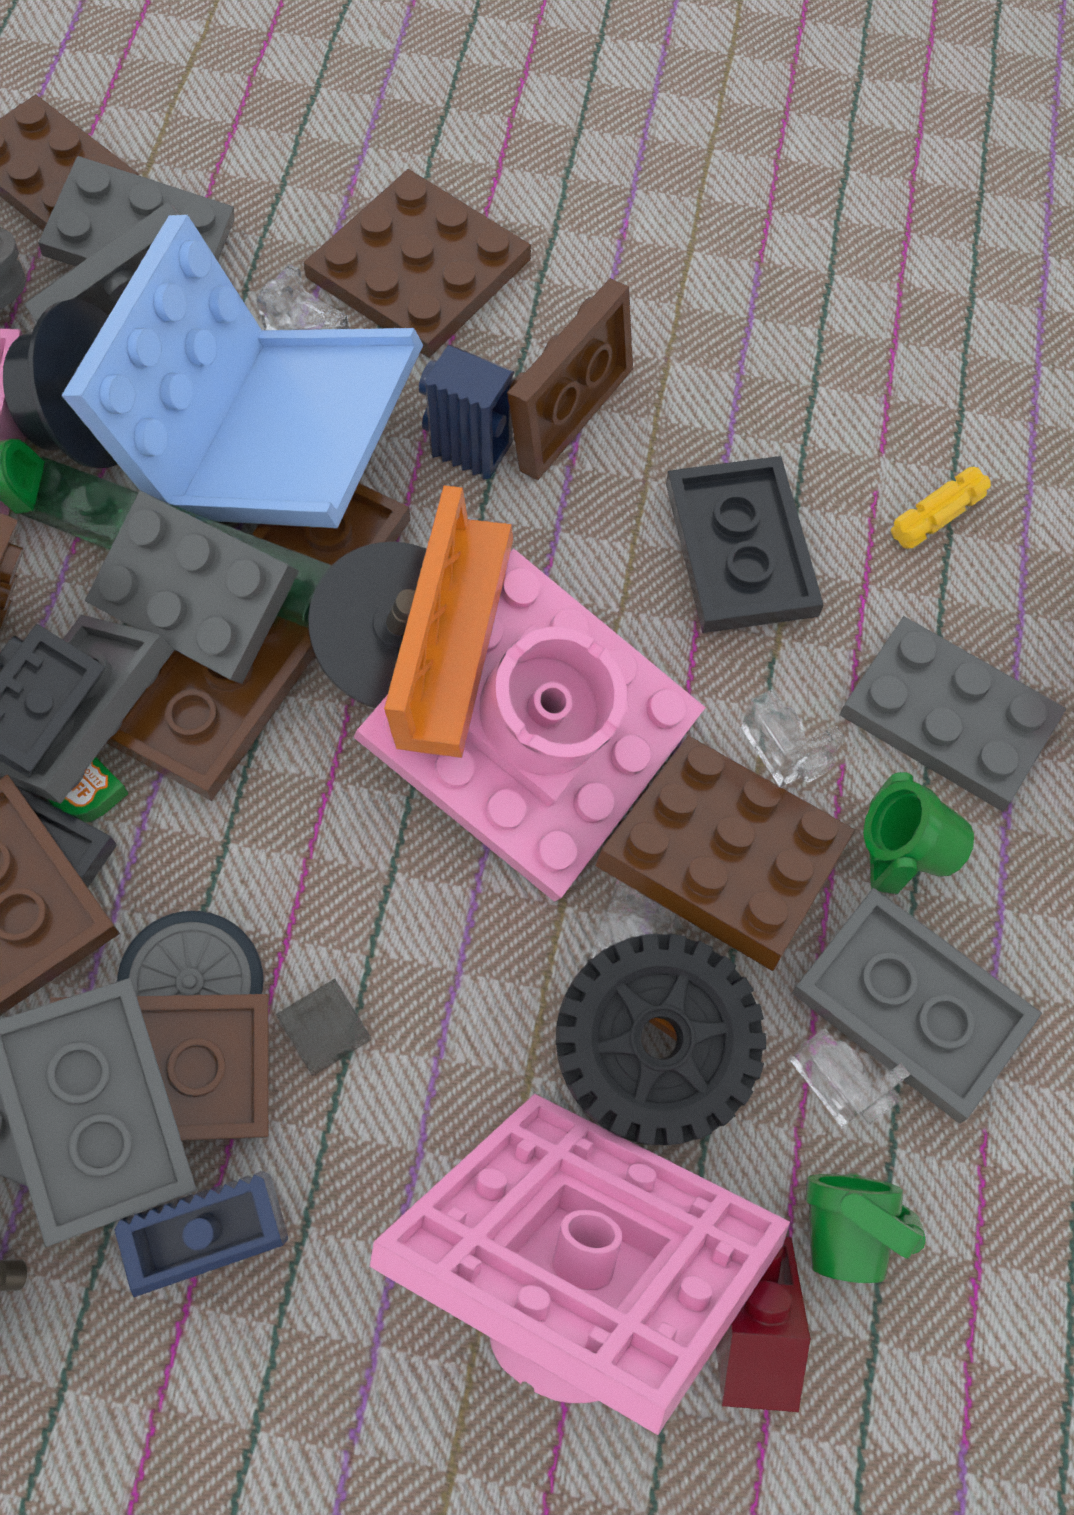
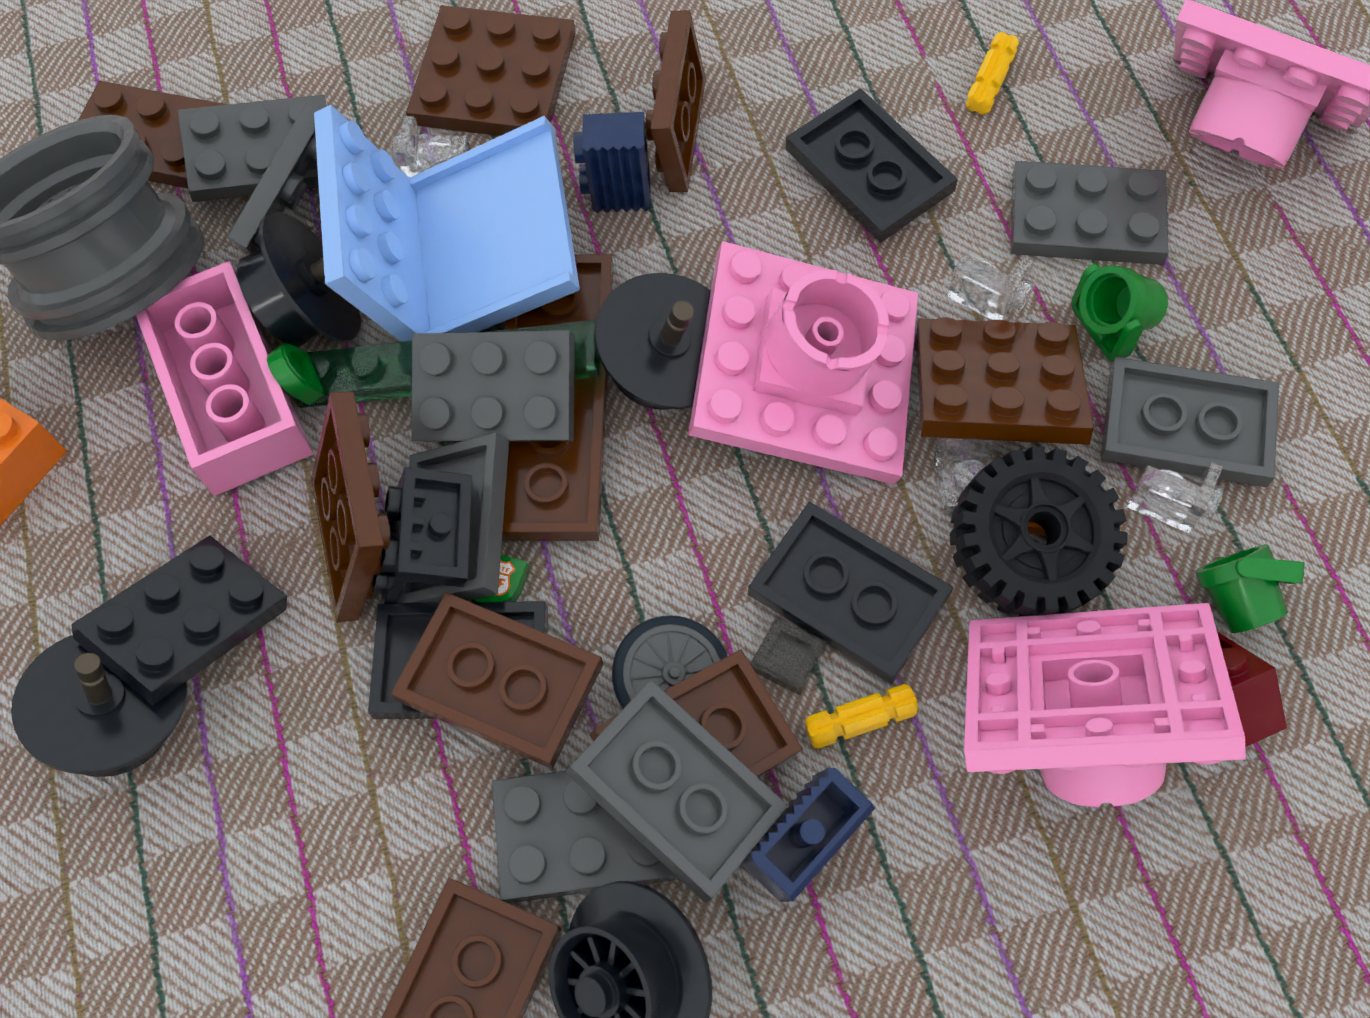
camera: 20 degrees left, 0 degrees up
(355, 1134) = (861, 716): none -> yellow axle
(427, 994) = (850, 591): none -> black plate
(448, 630) = (724, 318): orange fence -> none

